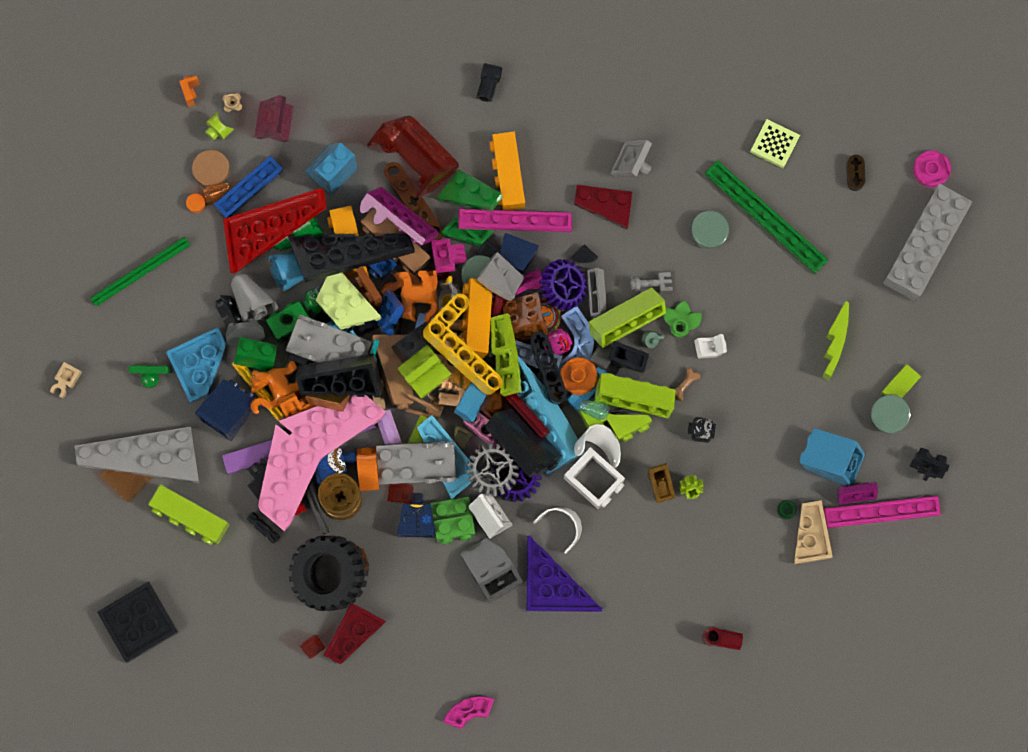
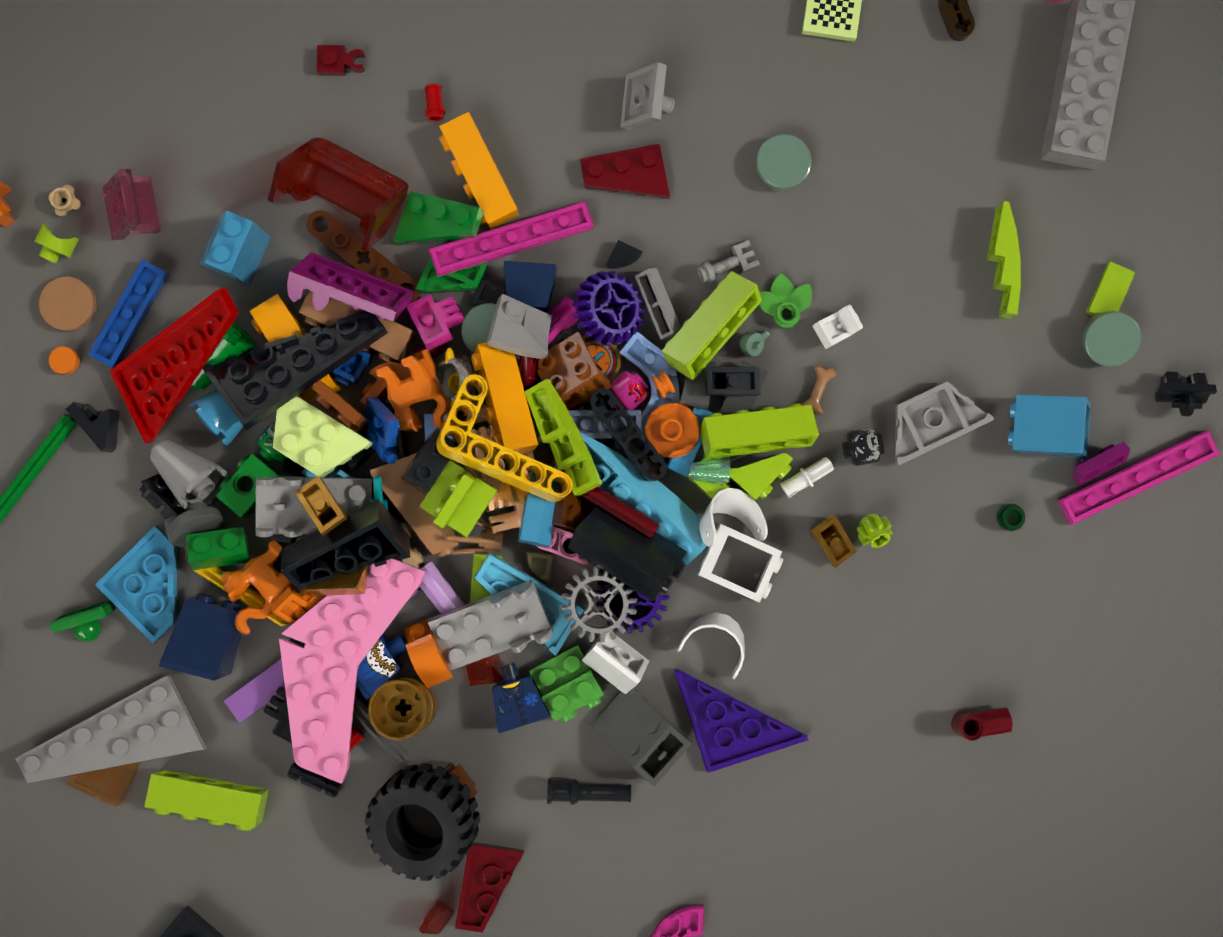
camera: 15 degrees left, 10 degrees up
(205, 254) = (100, 430): none -> black slope
(214, 192) = (84, 336): clear orange cone -> none
(335, 344) = (321, 505): none -> pearl gold slope
(433, 592) = (623, 792): none -> black pin
(438, 71) = (334, 60): none -> dark red plate
(489, 78) = (409, 45): black piece -> none
(494, 117) = (435, 110): none -> red pin
(582, 344) = (663, 384): none -> orange bush
(657, 437) = (807, 477): none -> white axle
(755, 428) = (934, 420): none -> light grey wing
(766, 217) = (853, 118): green tile -> none
(812, 535) = (1057, 541): tan wing -> none

